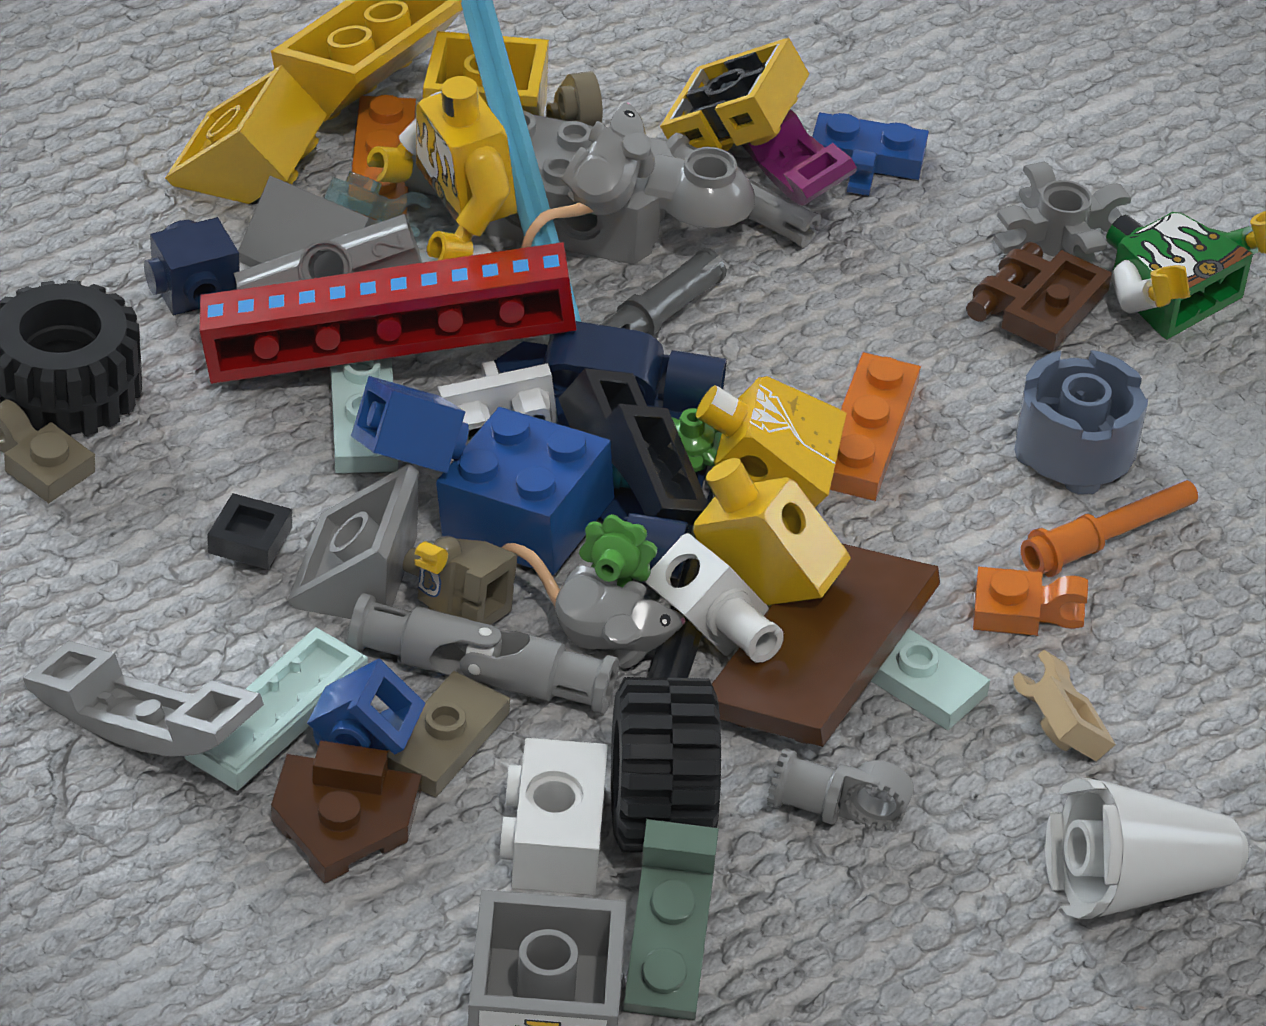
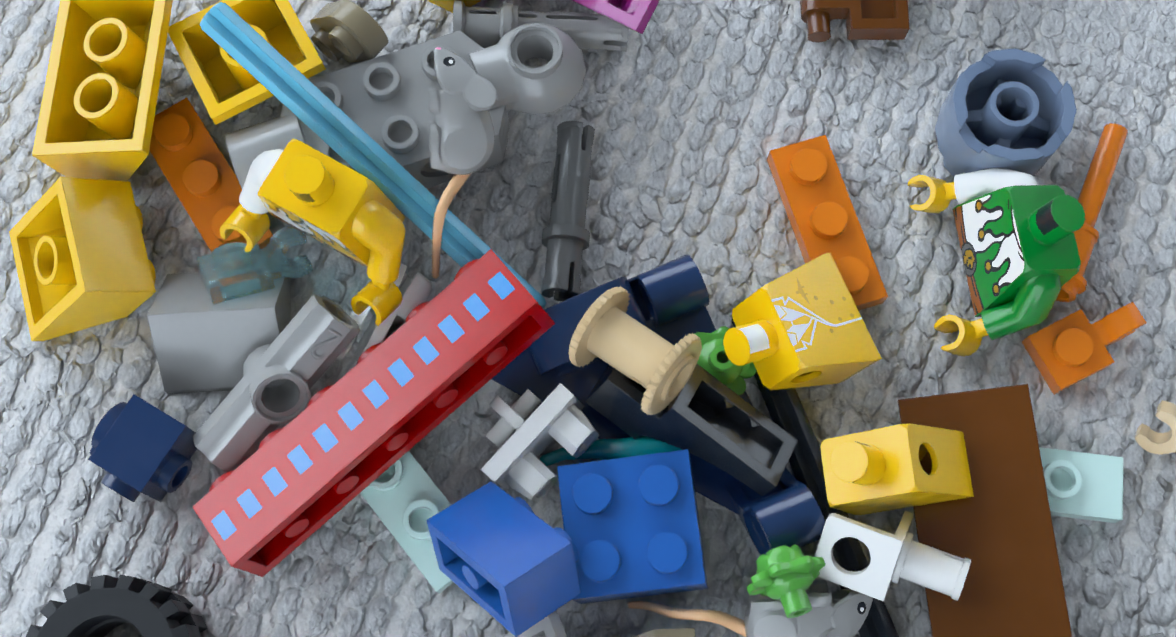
camera: 30 degrees left, 30 degrees up
(612, 340) = (634, 350): none -> tan hose
(1007, 497) = (1013, 248): none -> torso

